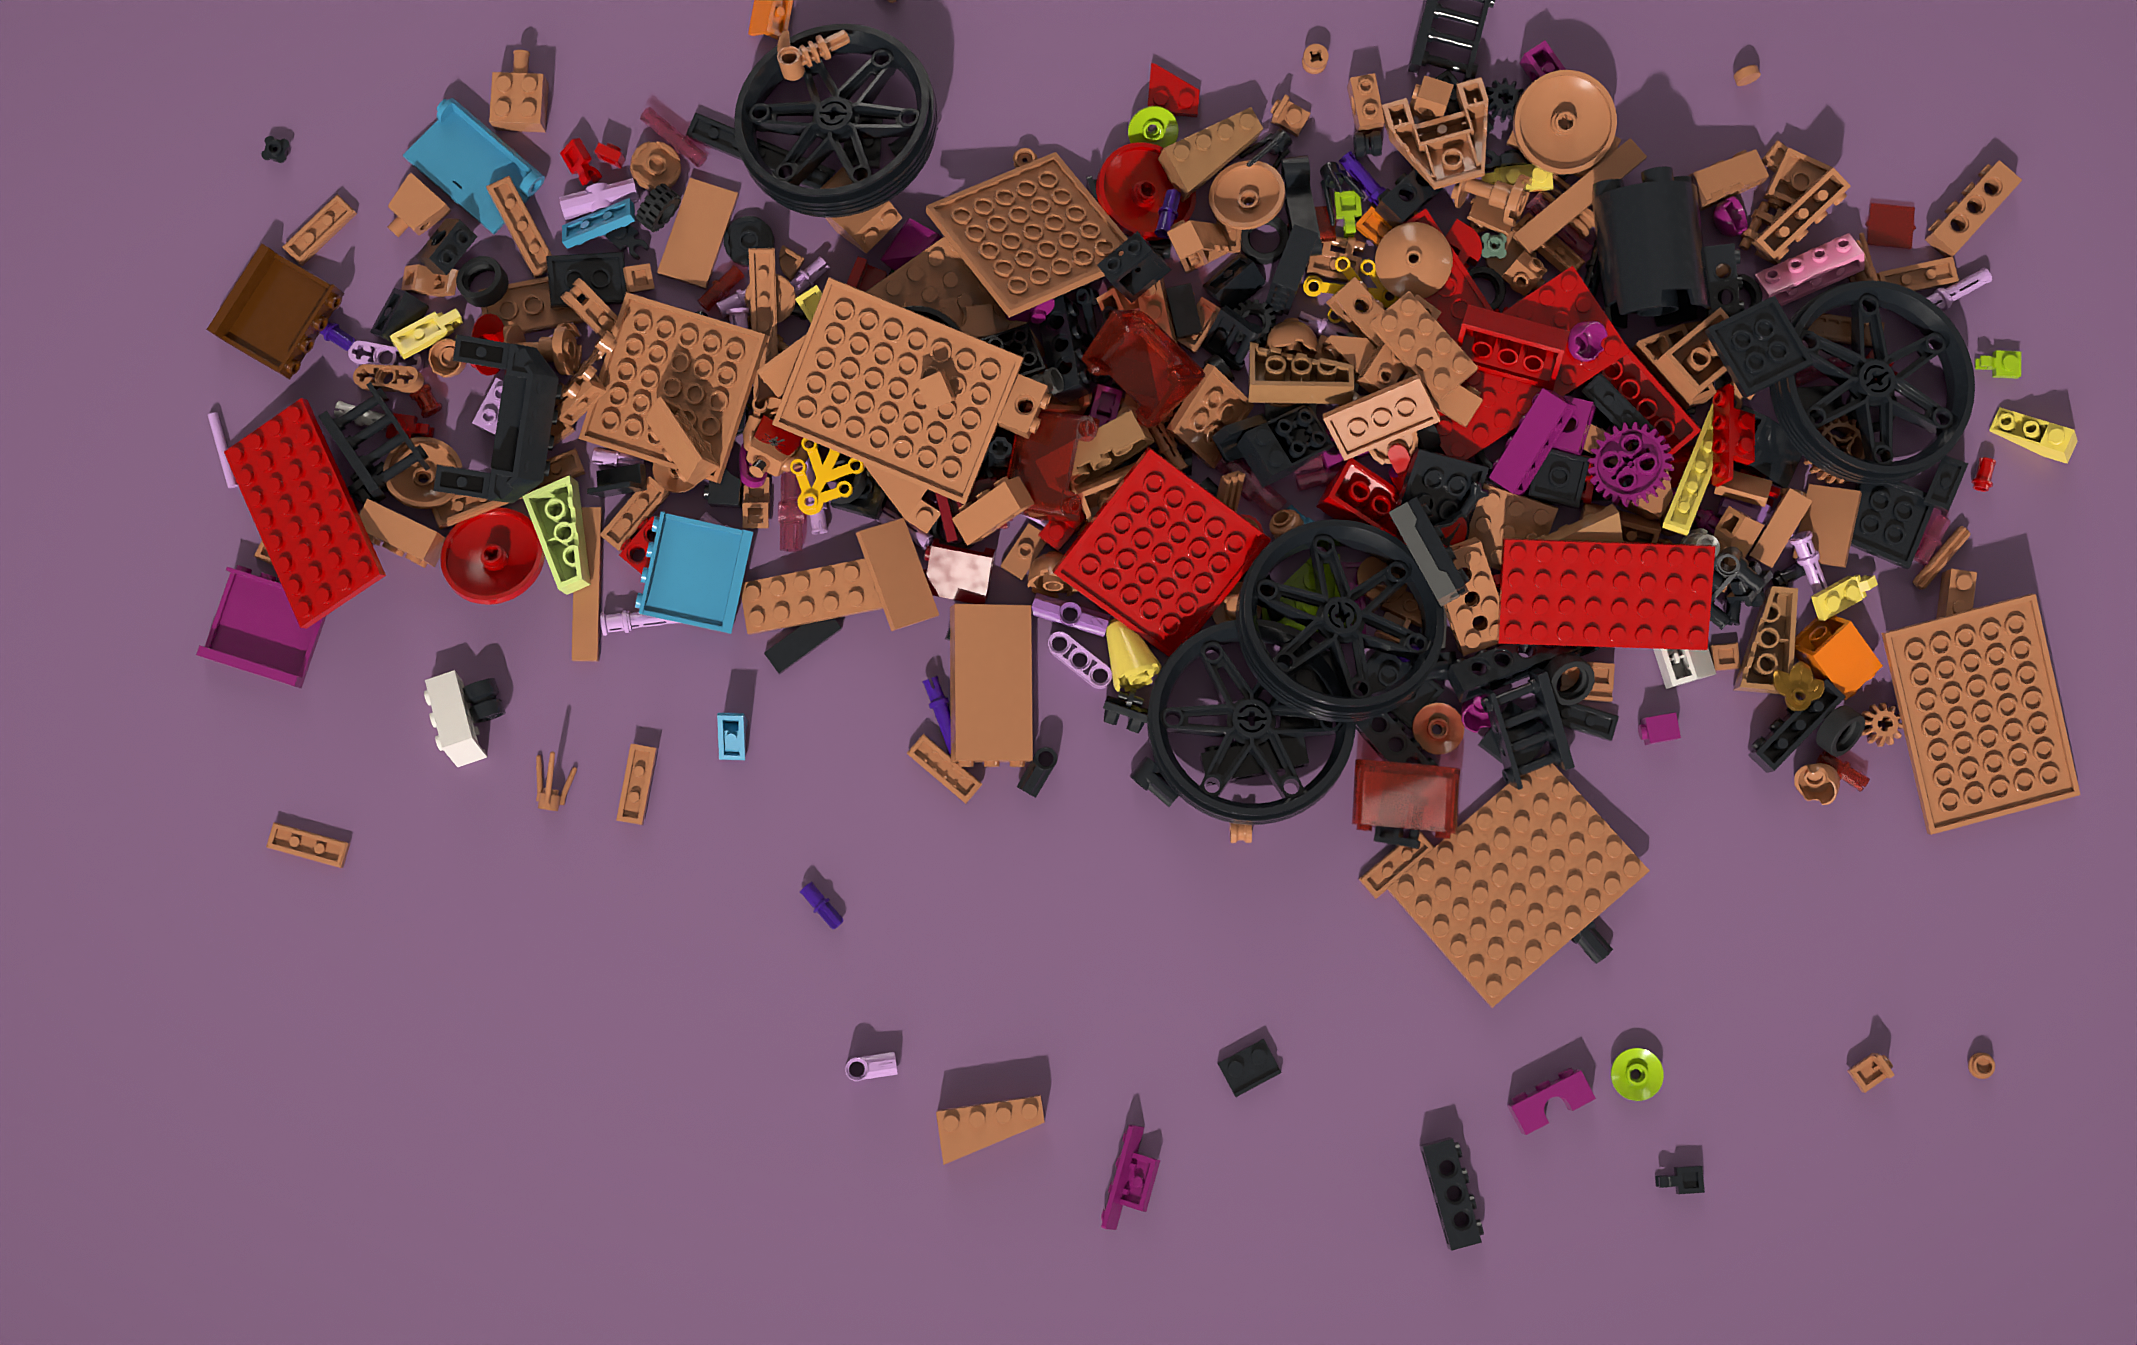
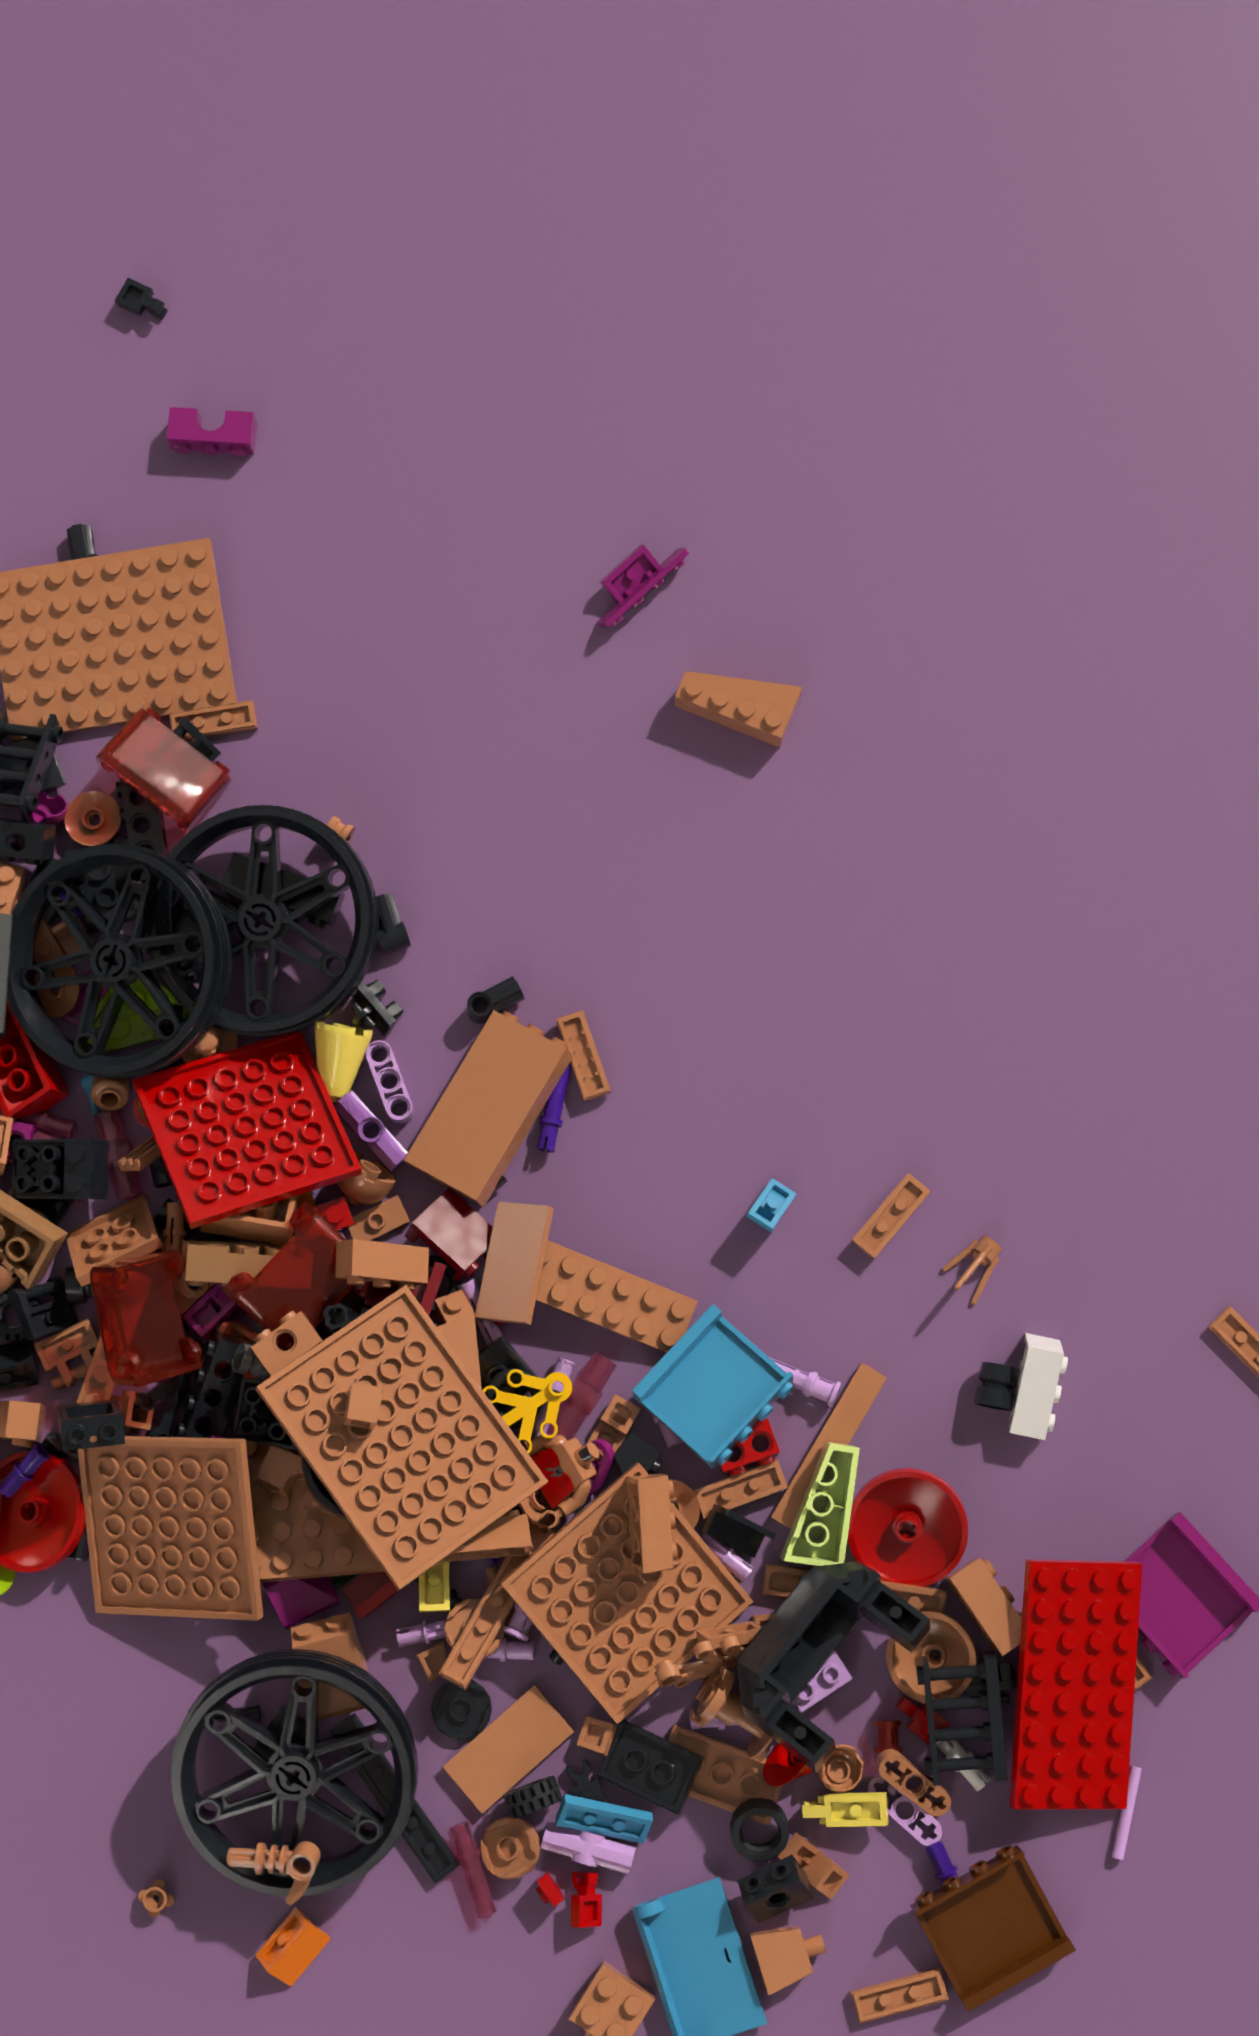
camera: 145 degrees left, 5 degrees down
(398, 313) = (867, 1848): black panel -> none
(520, 225) = (686, 1868): nougat tile -> none
(592, 309) = (663, 1726): nougat plate -> none
(720, 288) = (519, 1674): clear red pin -> none
(801, 643) = (652, 1261): black tile -> none
(822, 906) = (778, 995): dark purple axle -> none
(875, 1066) = (816, 816): lavender piece -> none
(1021, 154) = (128, 1631): nougat plate -> none
(1184, 311) = (72, 1365): black tile -> none
(1229, 436) = (111, 1209): black panel -> none
(1249, 1067) = (466, 618): black plate -> none
(1455, 1236) = (347, 446): black brick -> none
(1649, 1078) = (114, 399): lime dish -> none

